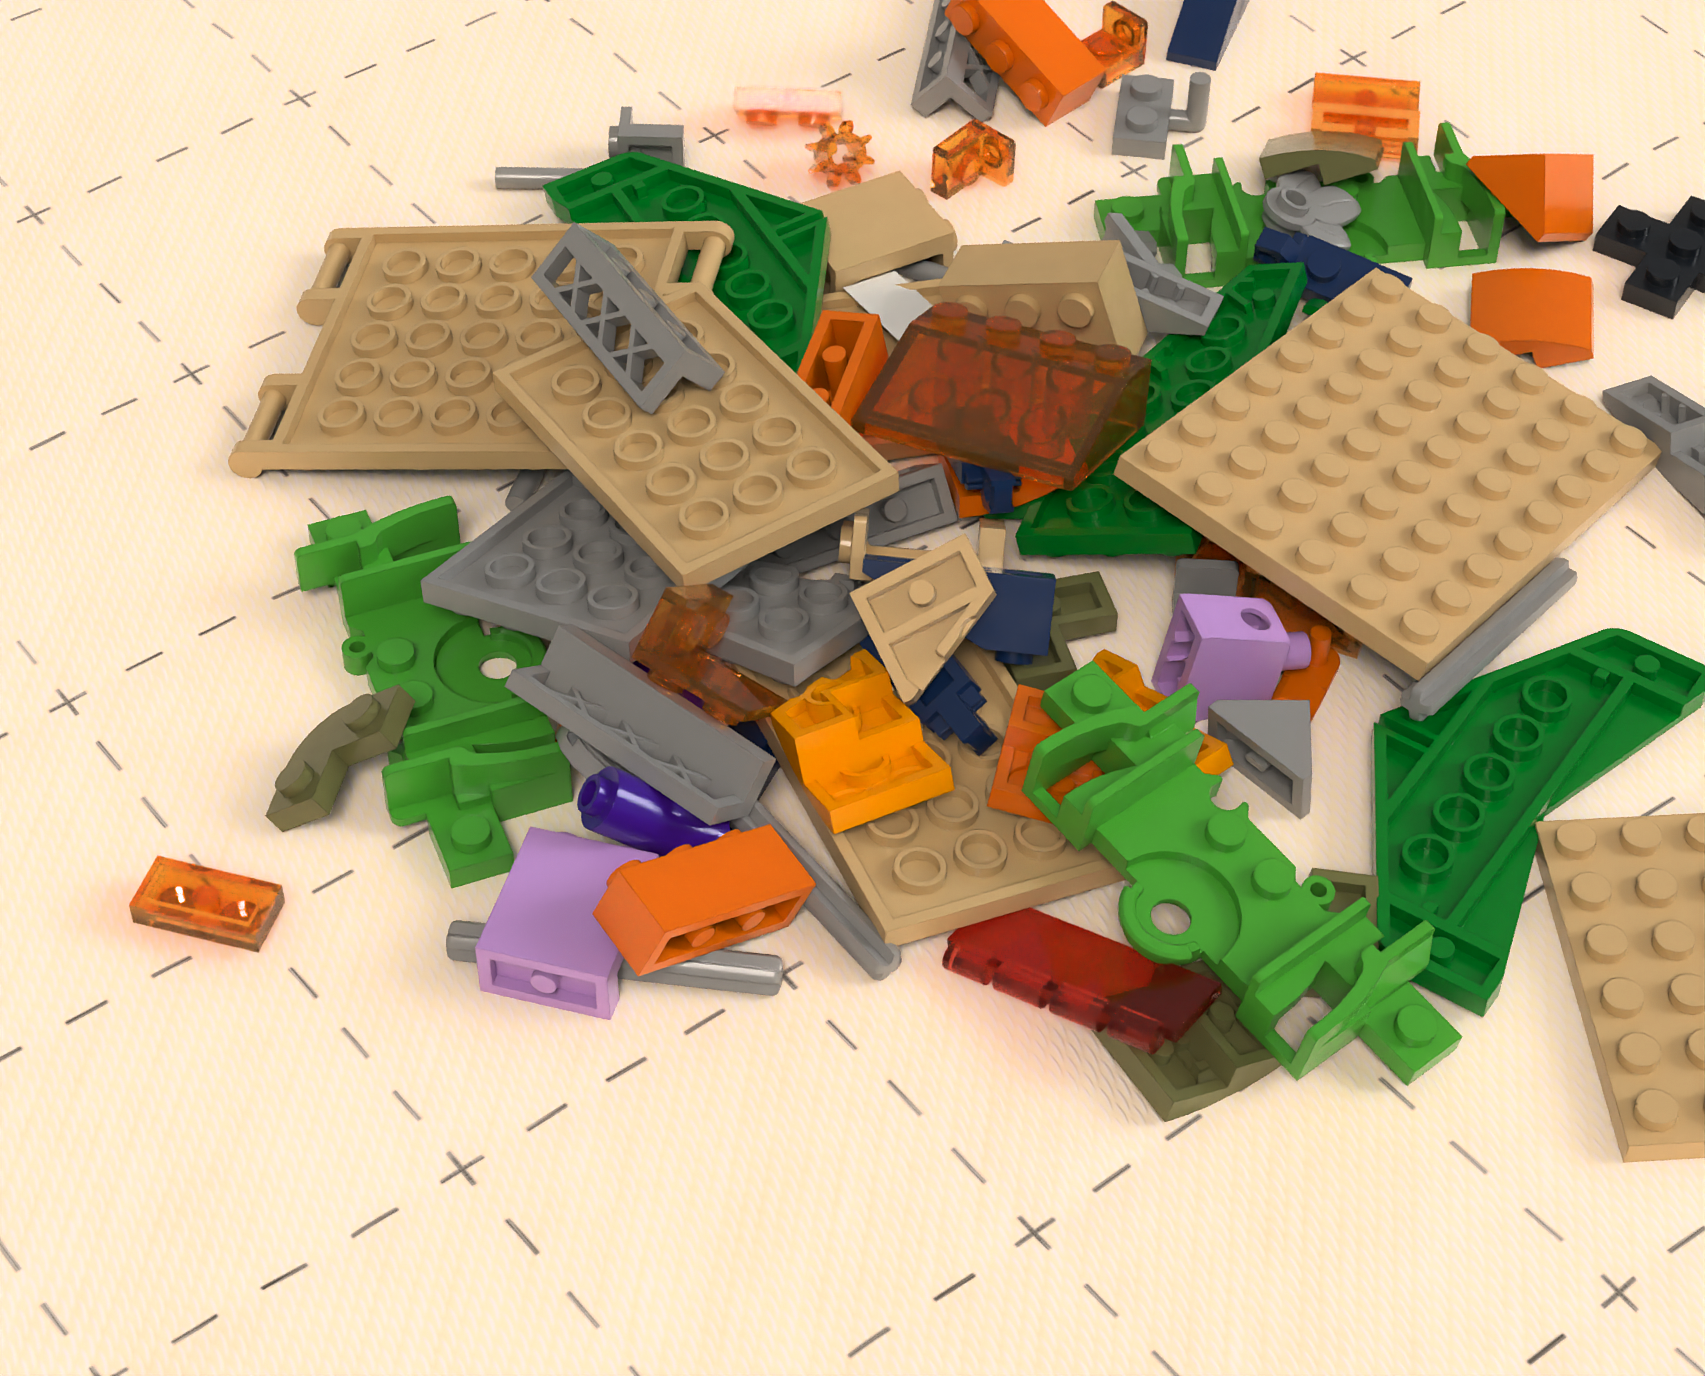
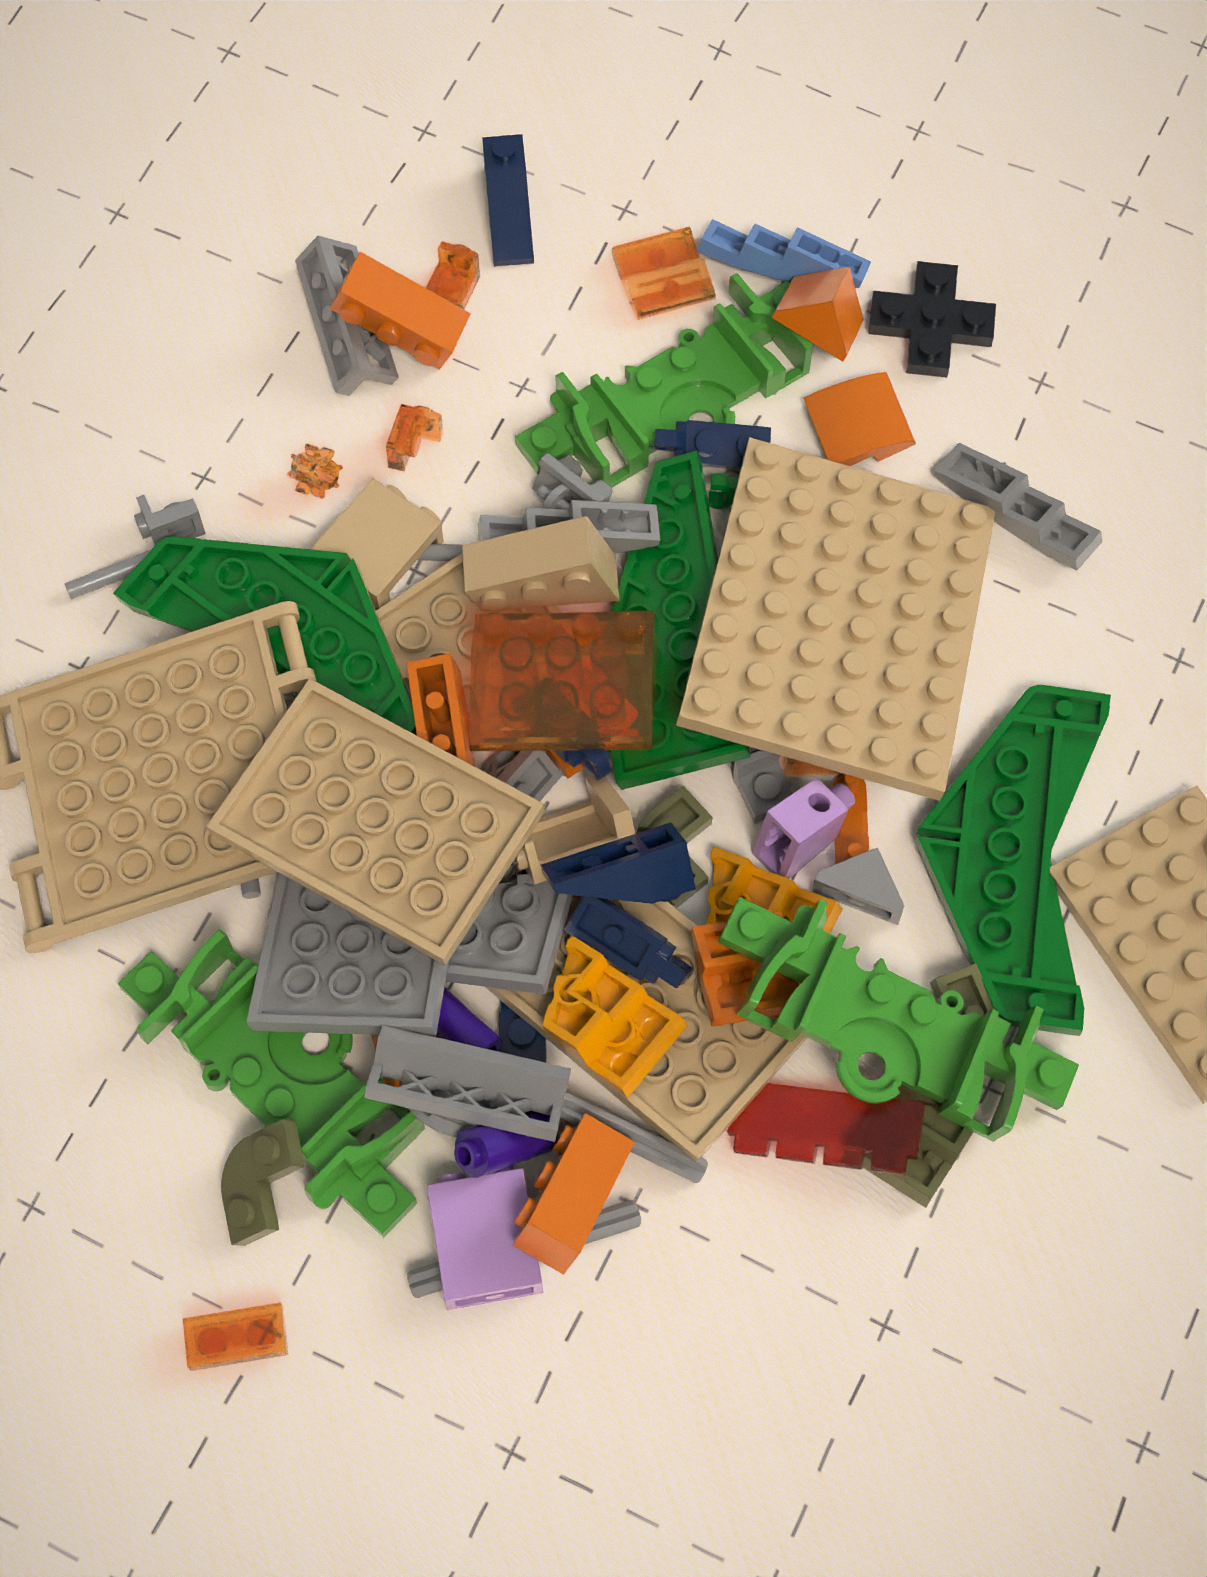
camera: 25 degrees left, 20 degrees up
(638, 305) = (289, 732): light grey fence -> none
(675, 648) = (490, 1019): clear orange bracket -> none
(766, 104) = (266, 430): clear orange plate -> none
(893, 303) = (431, 604): white sticker -> none
(924, 612) = (612, 908): tan wing -> none
(1147, 115) = (510, 334): light grey plate -> none
(1307, 208) = (673, 389): light grey plate -> none
(1336, 153) = (657, 331): olive slope -> none
(1488, 640) = (948, 809): light grey axle -> none
(1504, 131) = (776, 255): none -> medium blue slope

